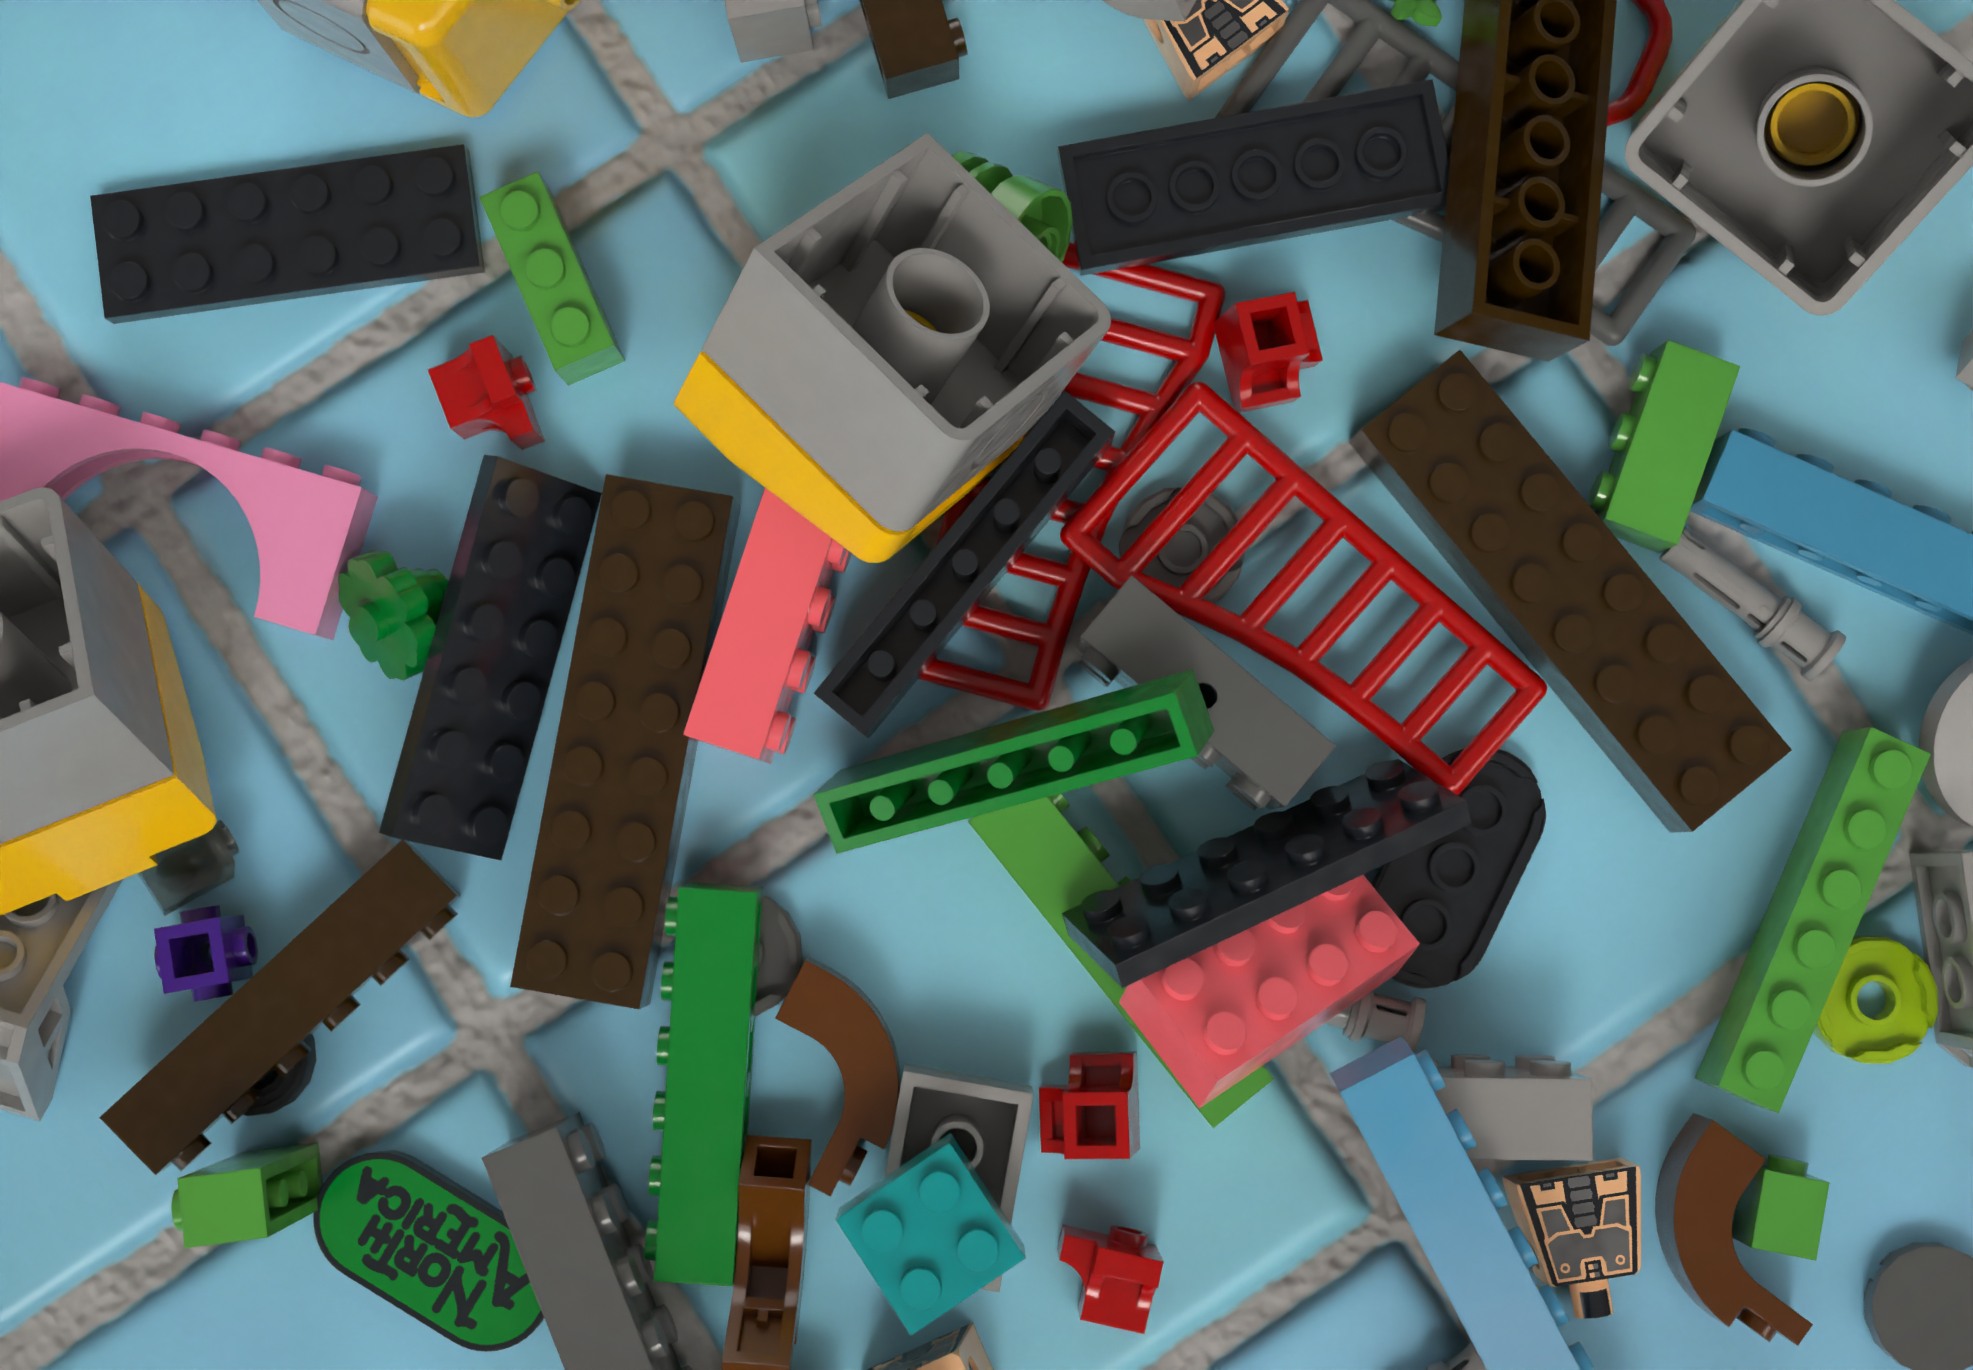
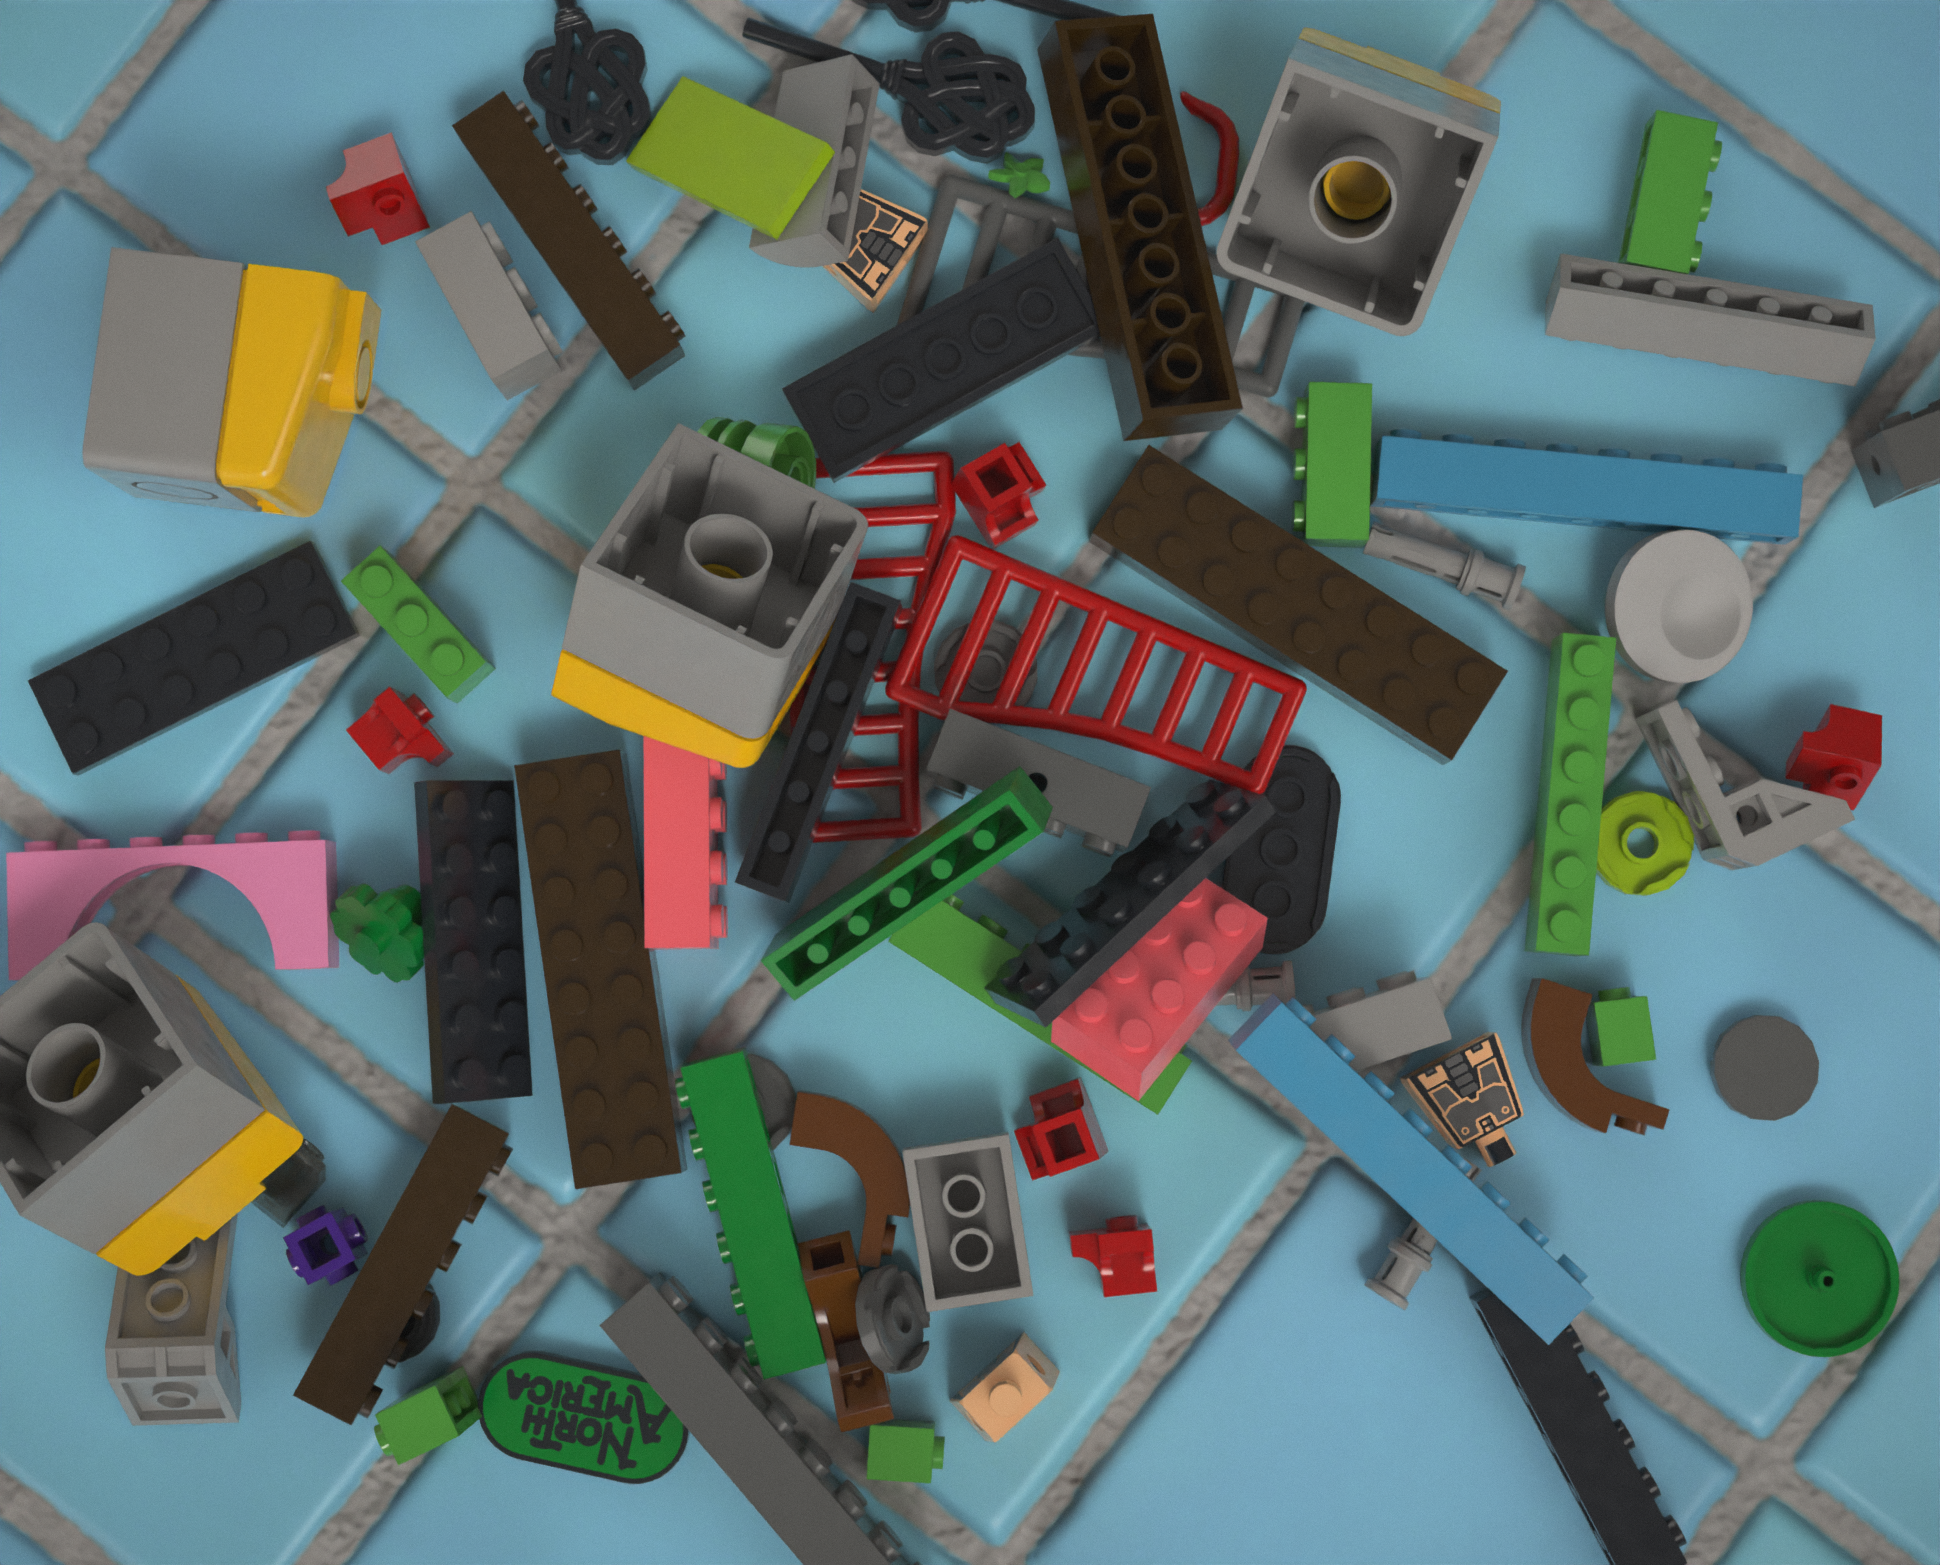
camera: 15 degrees left, 0 degrees up
(820, 1267) = (892, 1319): none -> dark grey tile
(930, 1234) = (964, 1266): teal brick -> none

